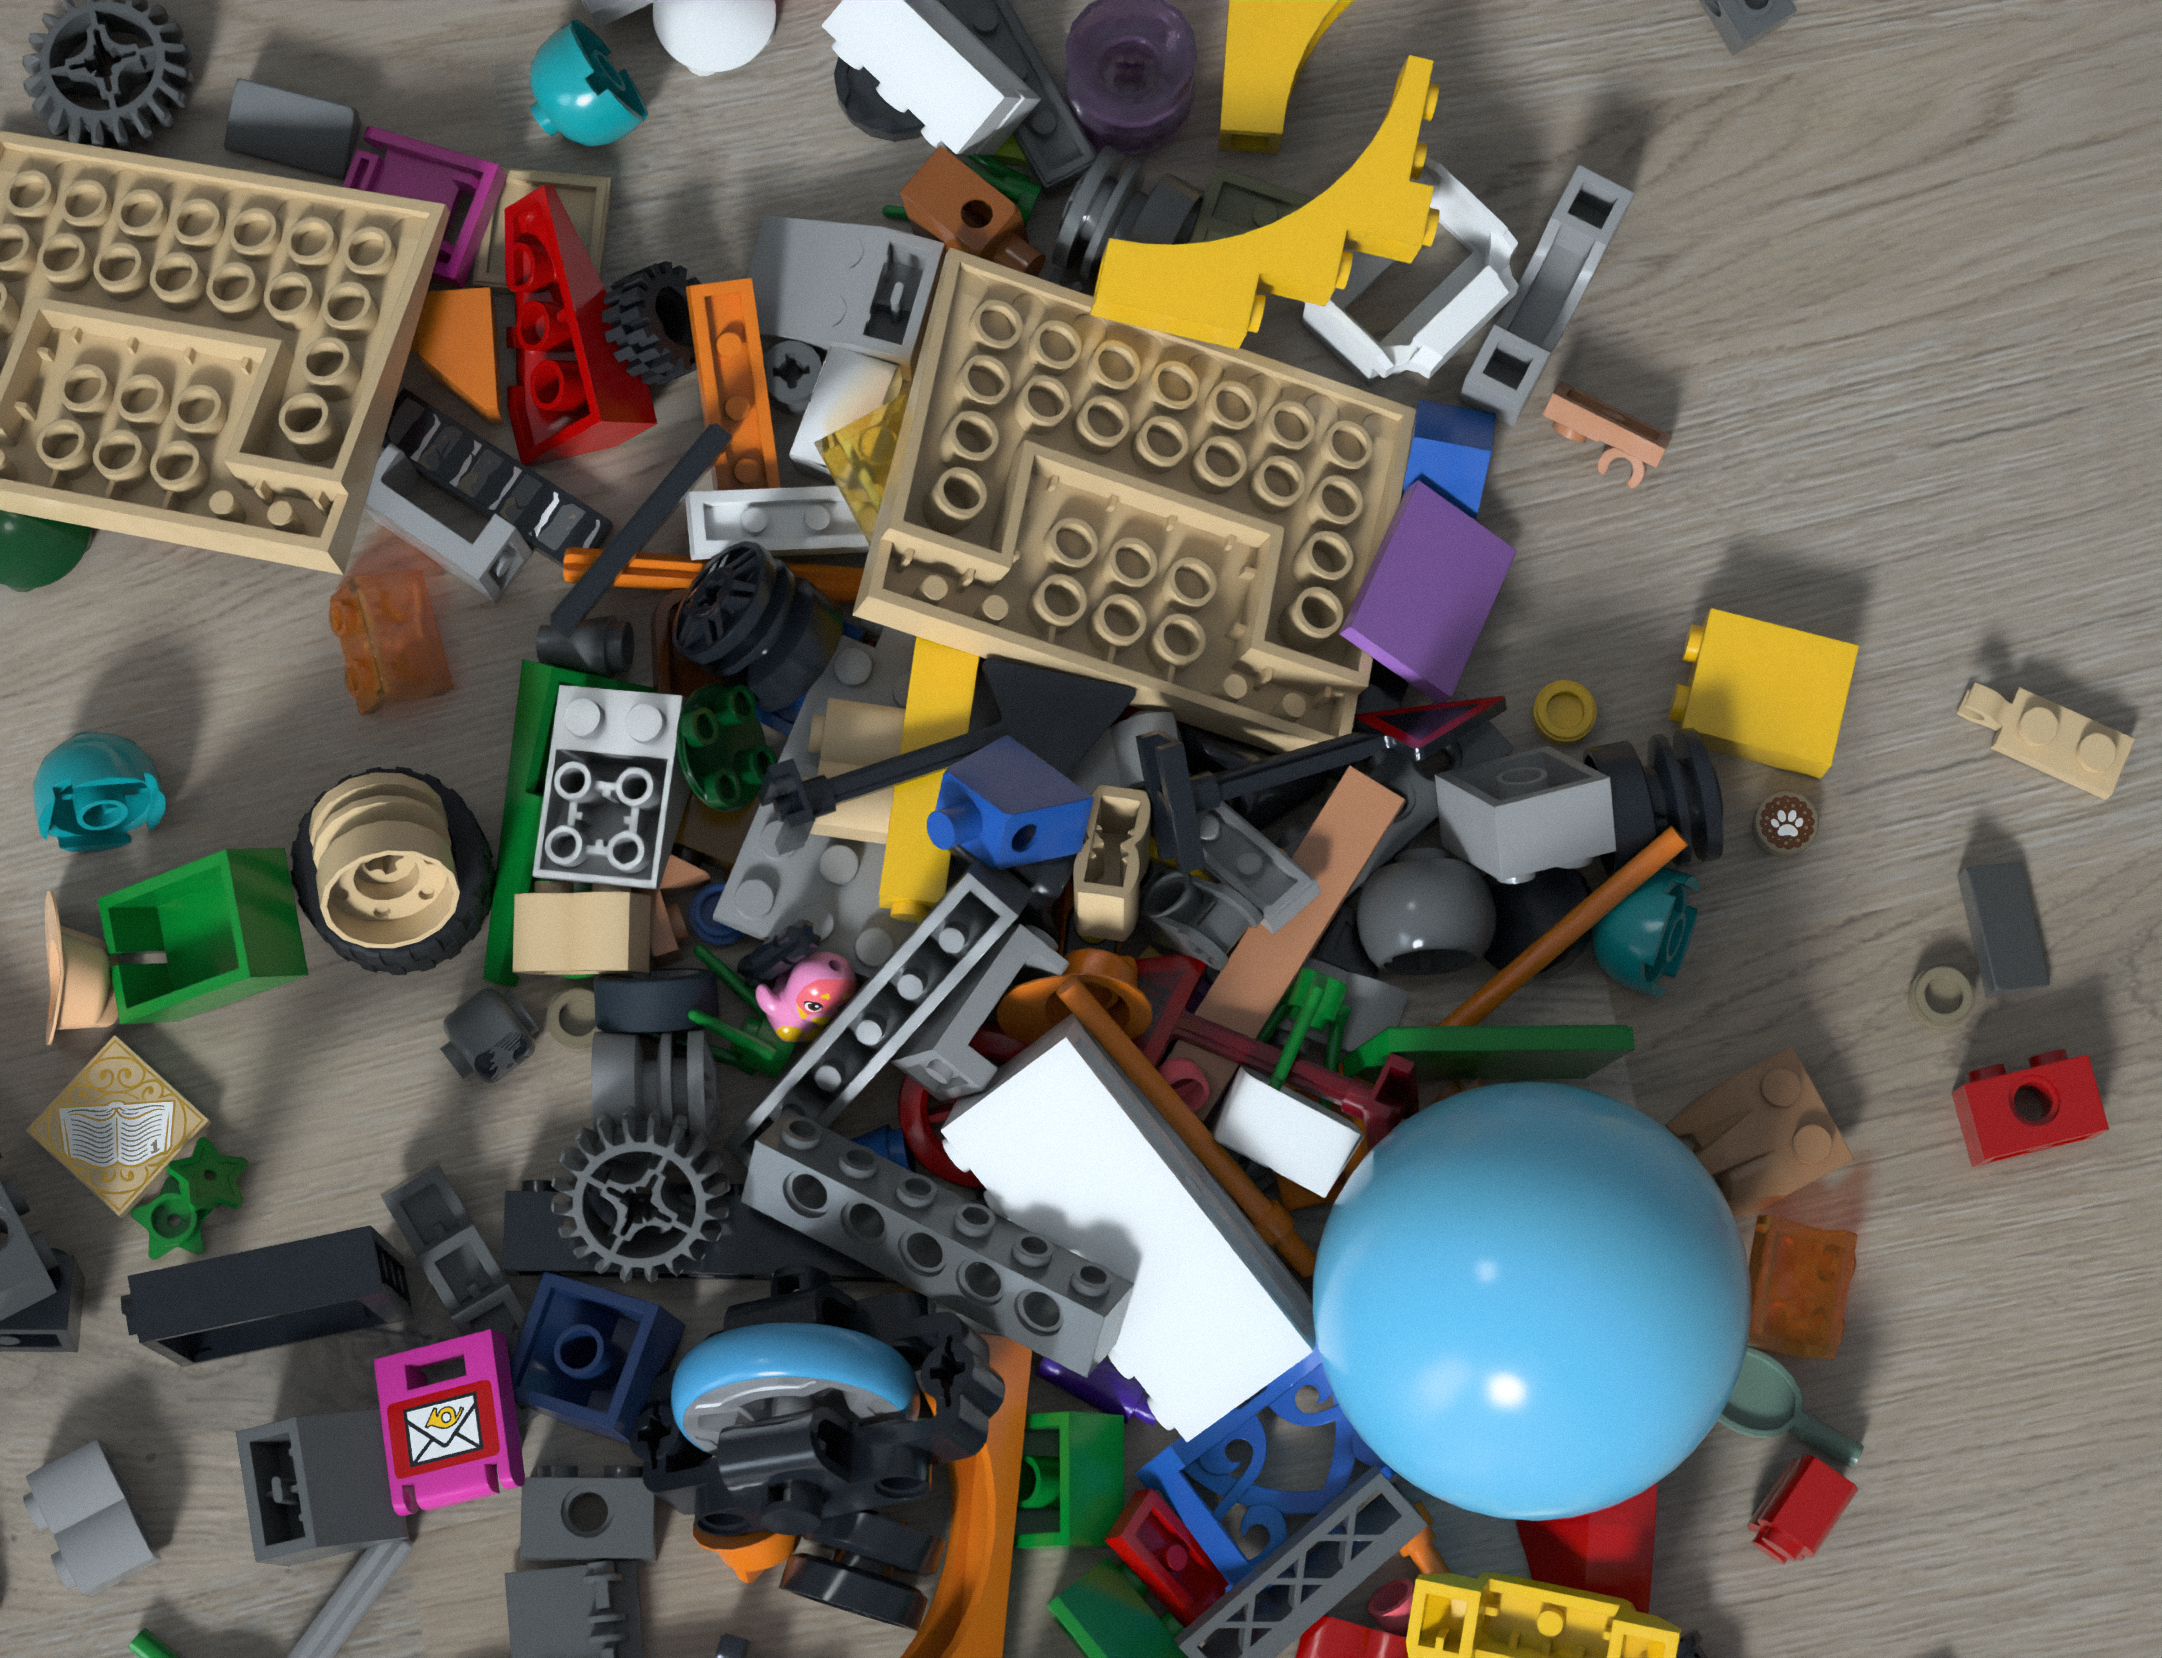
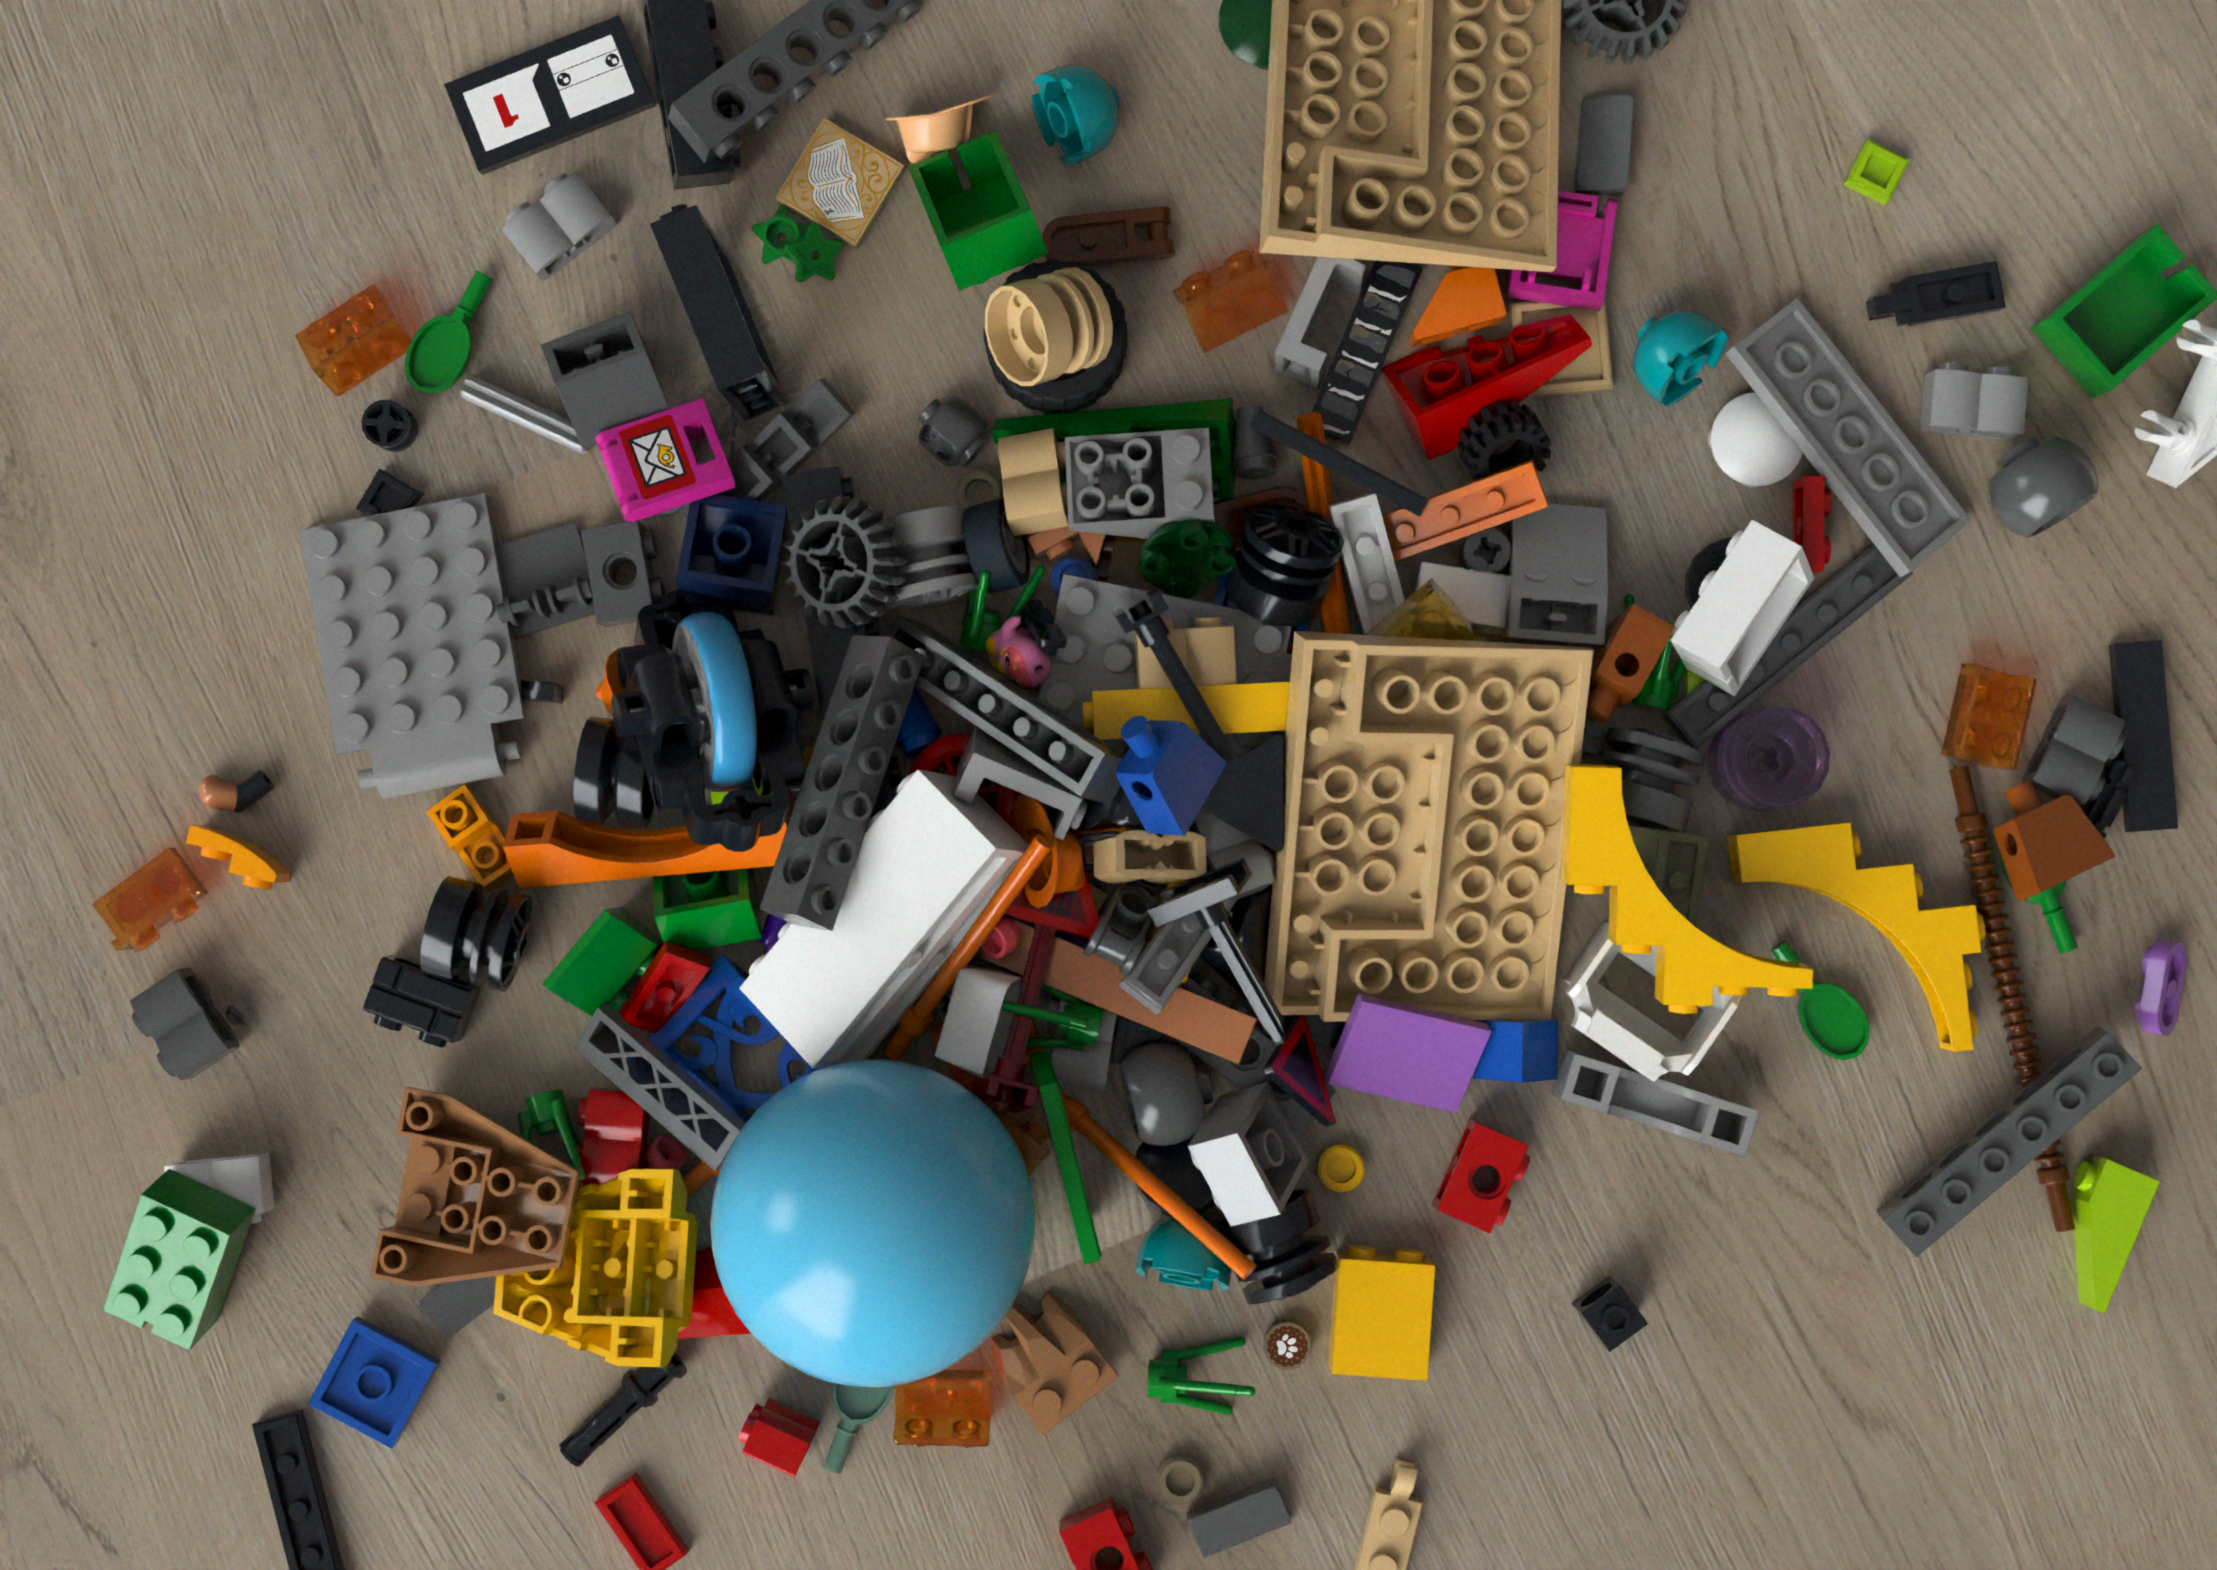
camera: 85 degrees right, 10 degrees up
(272, 775) = (1109, 236): none -> reddish brown plate
(1472, 63) = (1829, 1014): none -> green piece
(1584, 416) = (1567, 1148): nougat plate -> none
(1616, 566) = (1480, 1147): none -> red brick
(1807, 985) = (1170, 1382): none -> green plant
(1809, 404) = (1609, 1313): none -> black brick

